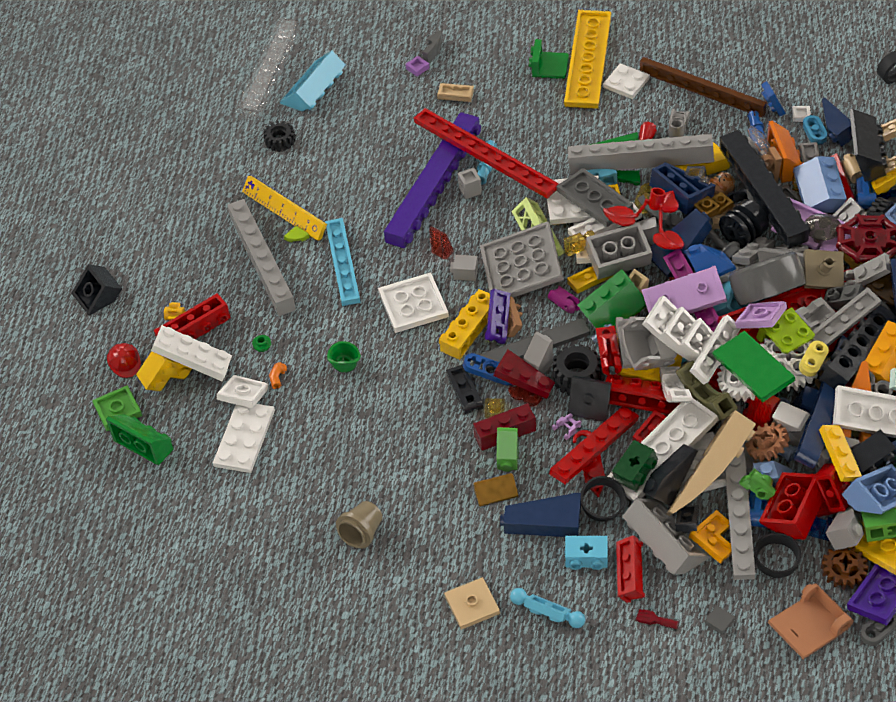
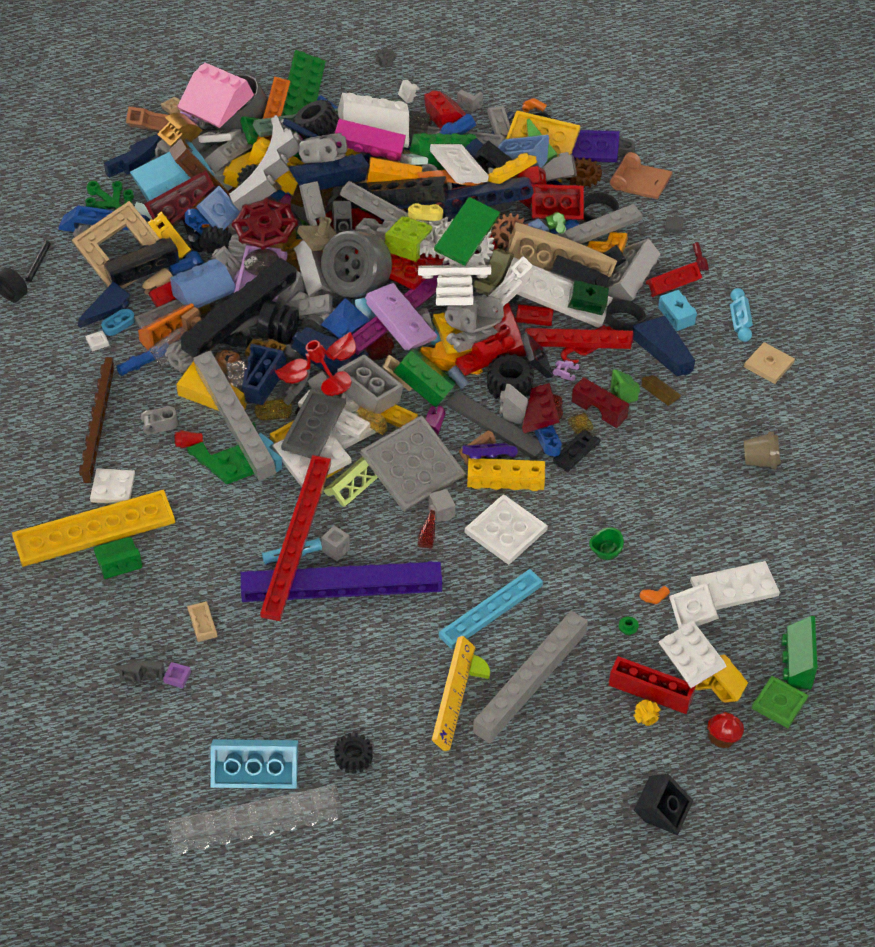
camera: 125 degrees left, 0 degrees up
(761, 314) = (406, 248): lavender tile -> none
(769, 96) = (97, 357): blue plate -> none

